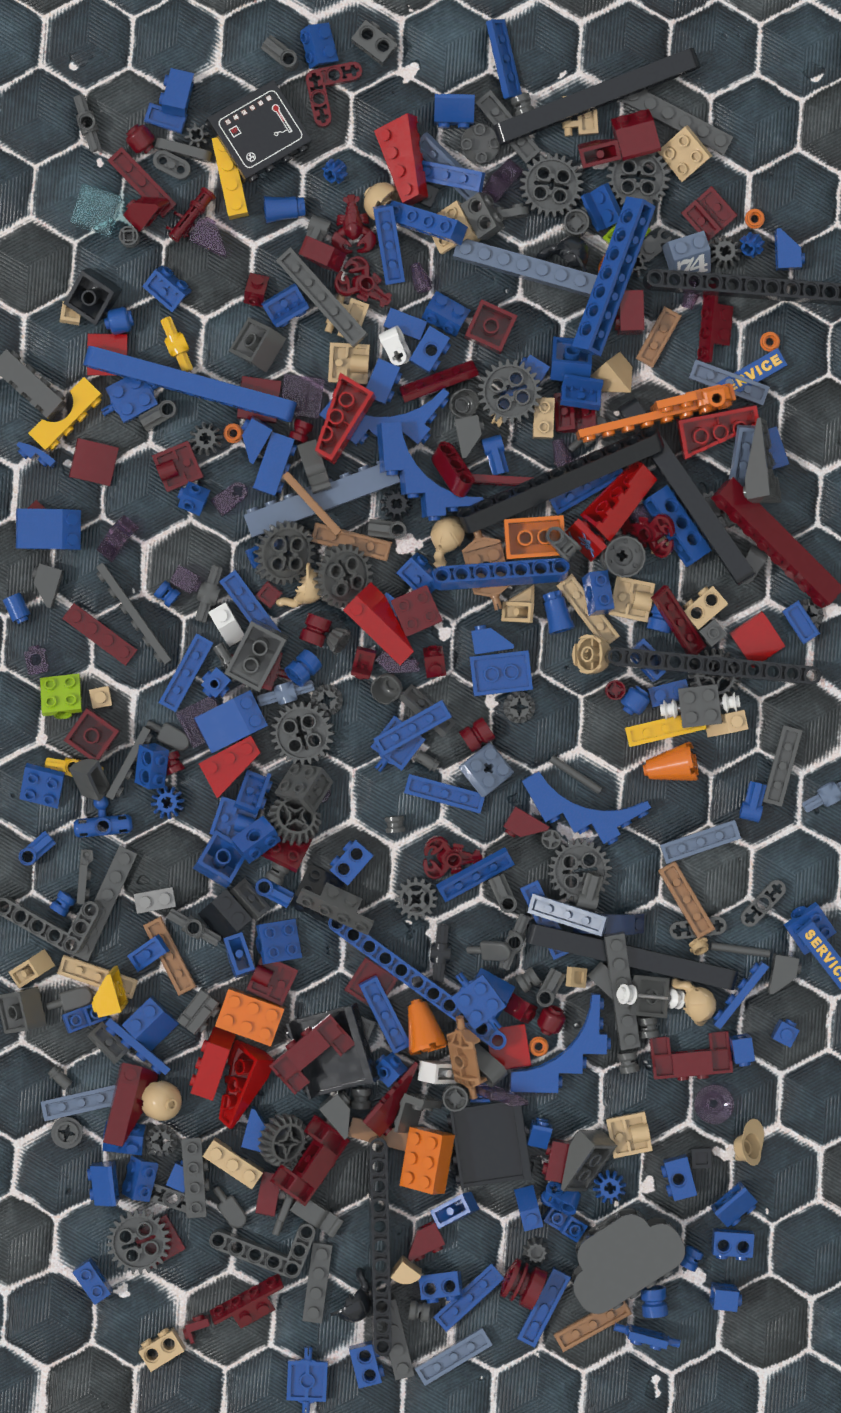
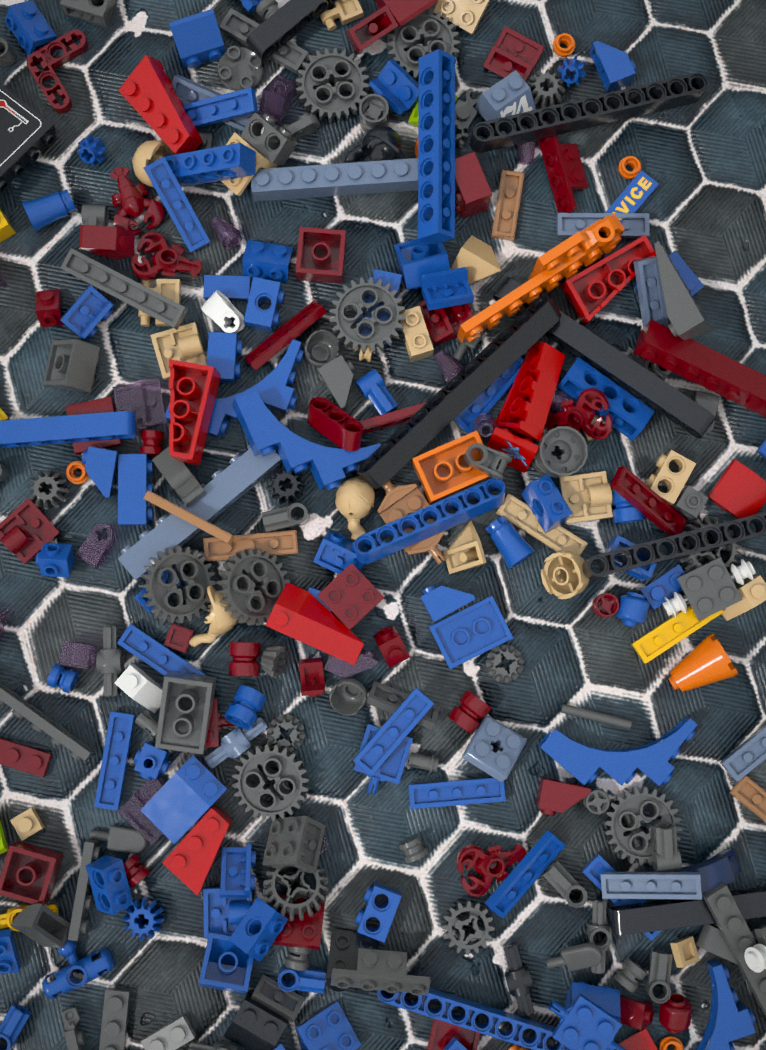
camera: 25 degrees left, 5 degrees down
(571, 509) = (482, 420): none -> clear purple cone

